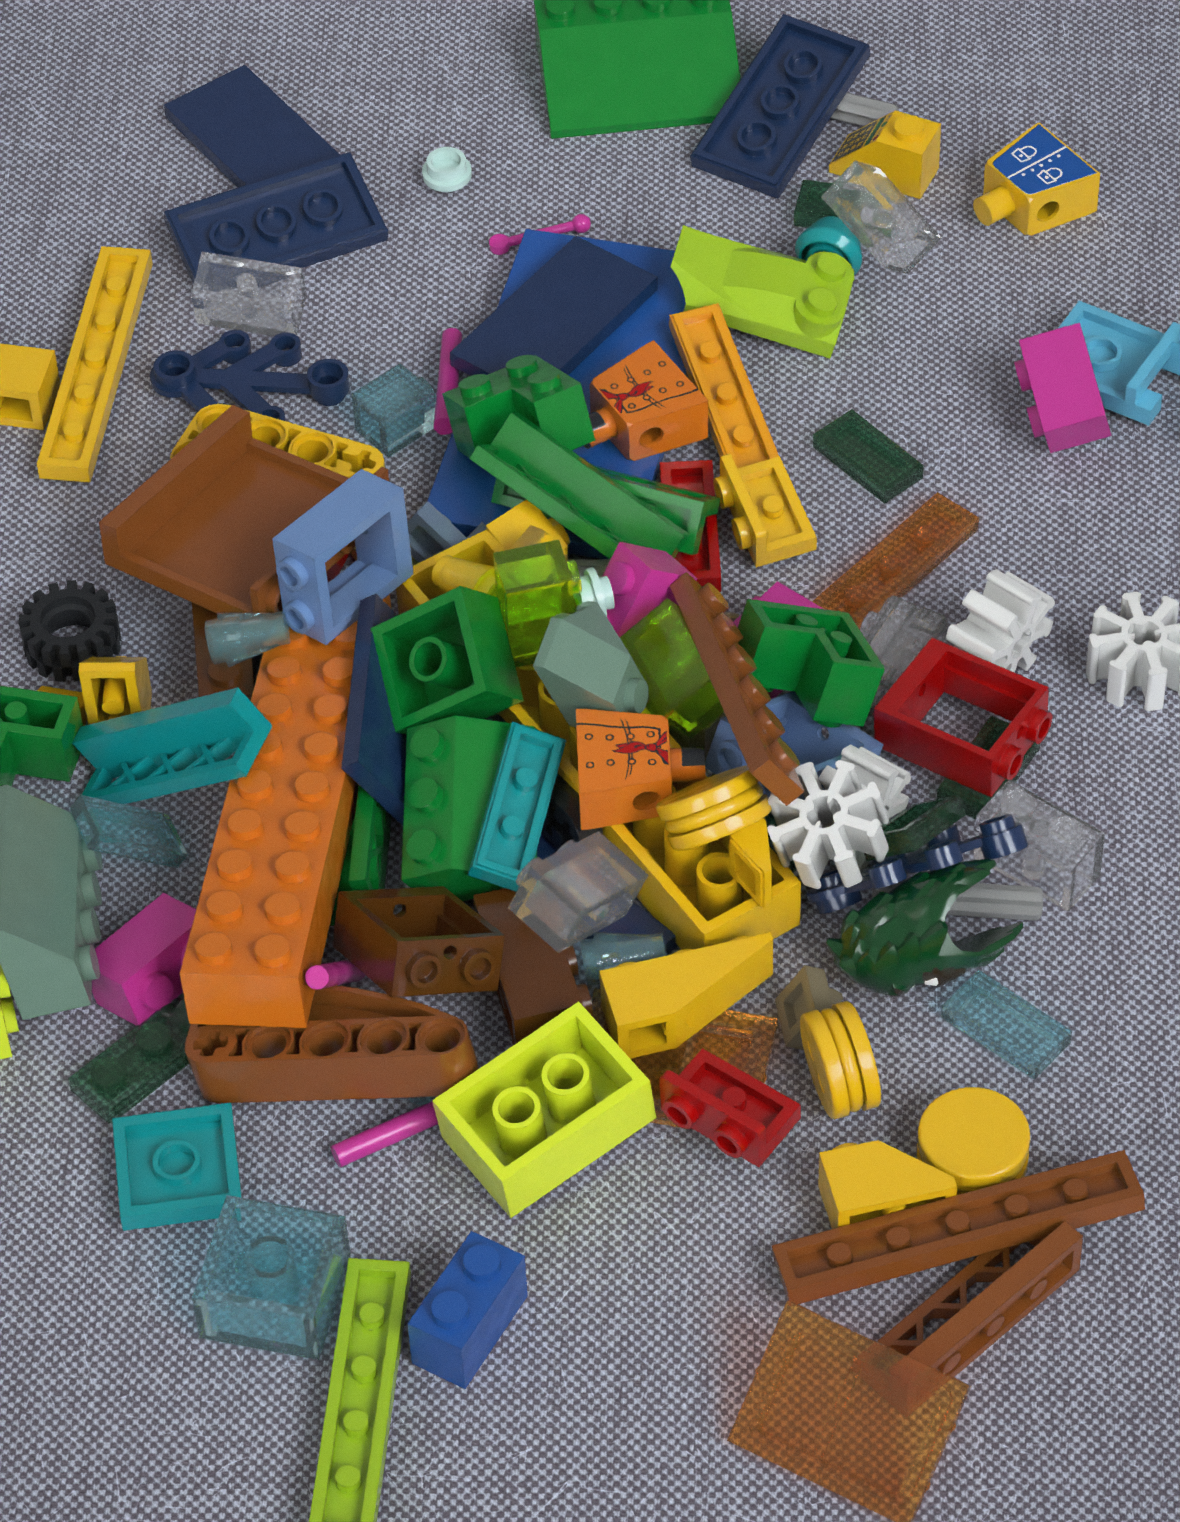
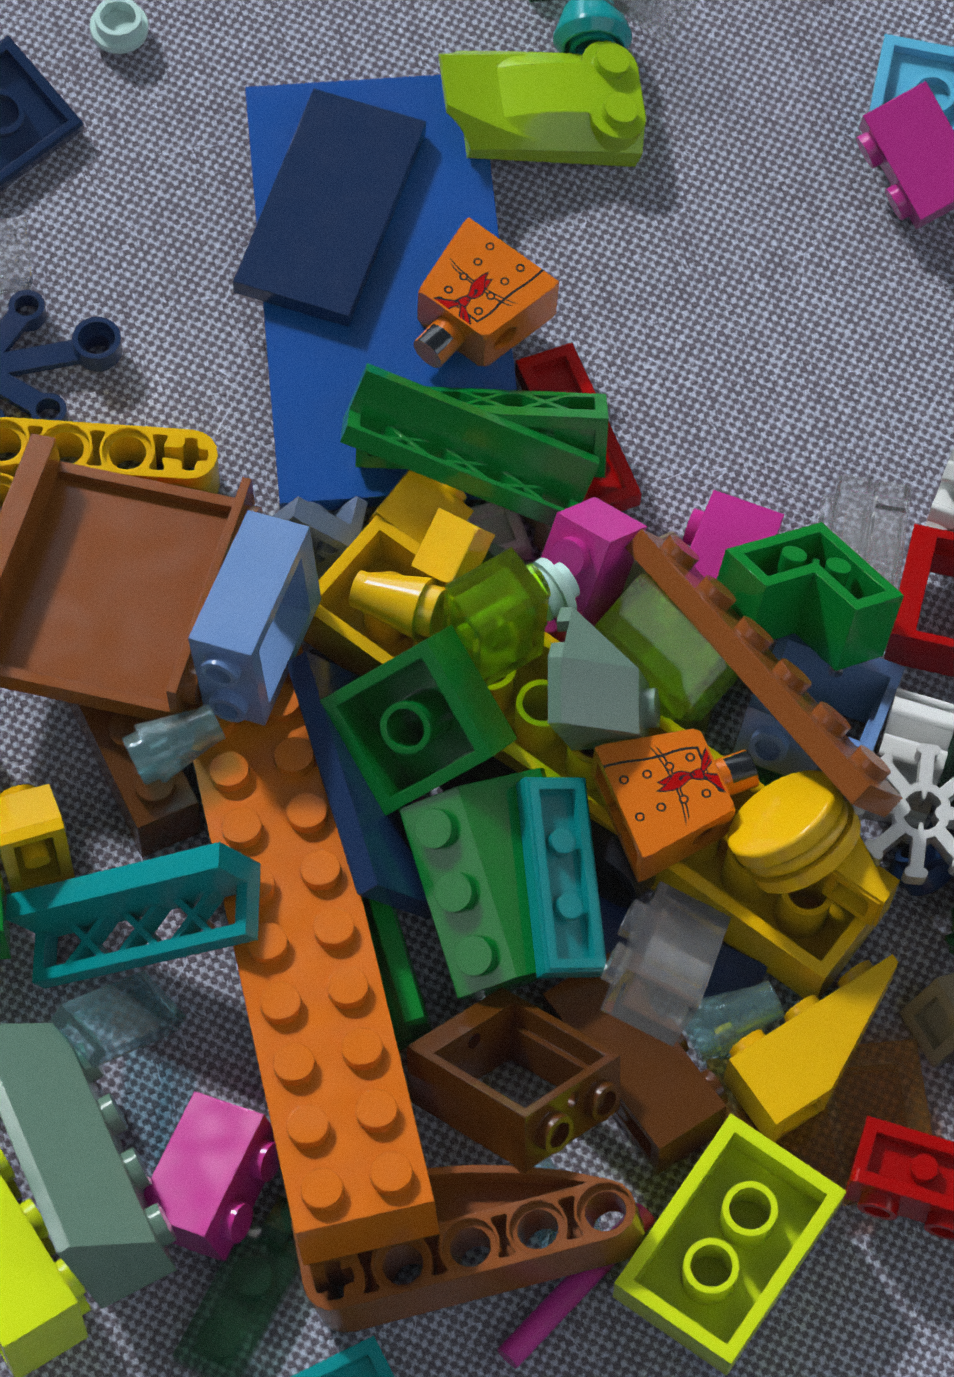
camera: 25 degrees left, 15 degrees up
(332, 974) = (442, 1157): dark pink bar -> none
(394, 409) = (190, 365): clear light blue brick -> none
(447, 379) = (235, 312): dark pink bar -> none
(501, 243) = (215, 106): dark pink hinge -> none
(524, 386) = (345, 328): green brick -> none
(720, 376) = (542, 233): light orange tile -> none
(764, 510) = (654, 392): yellow bracket -> none
(868, 456) = (728, 286): clear green tile -> none
(901, 558) = (812, 421): clear orange tile -> none

